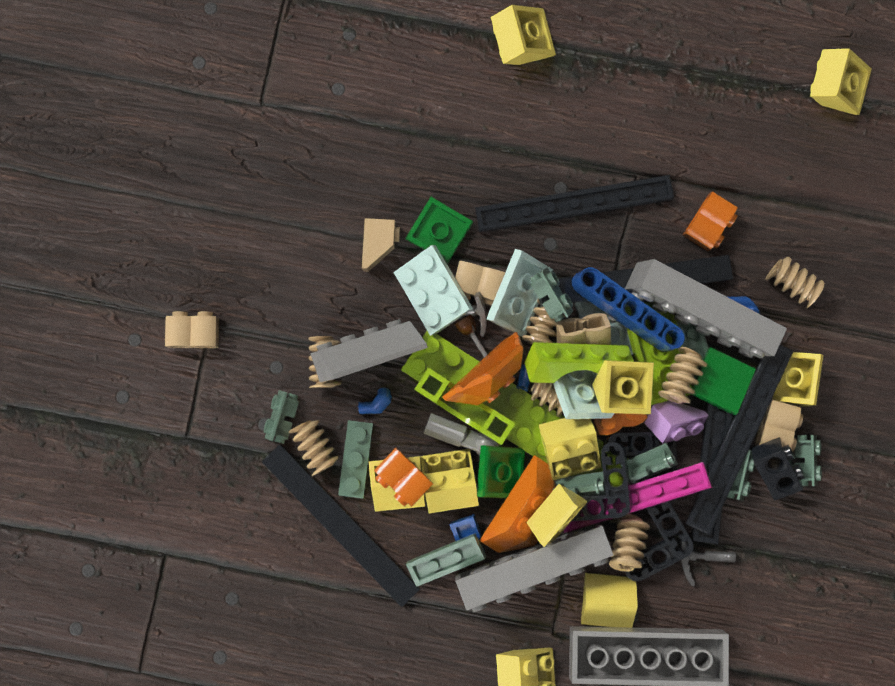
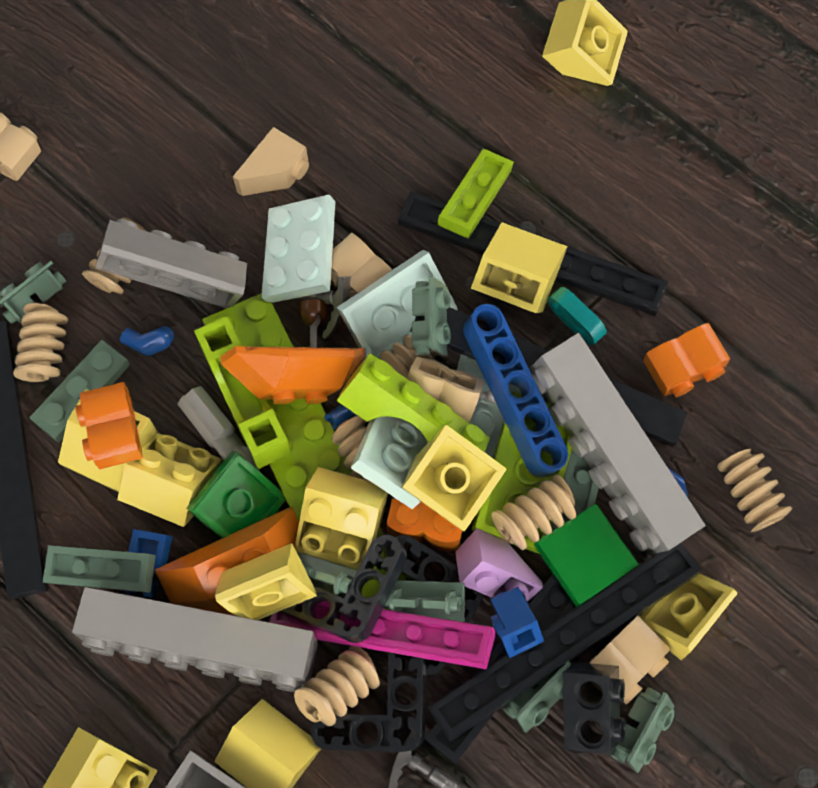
camera: 30 degrees right, 15 degrees down
(439, 227) = (357, 192): green tile -> none
(519, 186) = (475, 193): none -> lime plate
(578, 223) = (519, 268): none -> light yellow slope
(628, 231) = (576, 316): none -> teal beam
(707, 446) = (515, 622): none -> blue brick

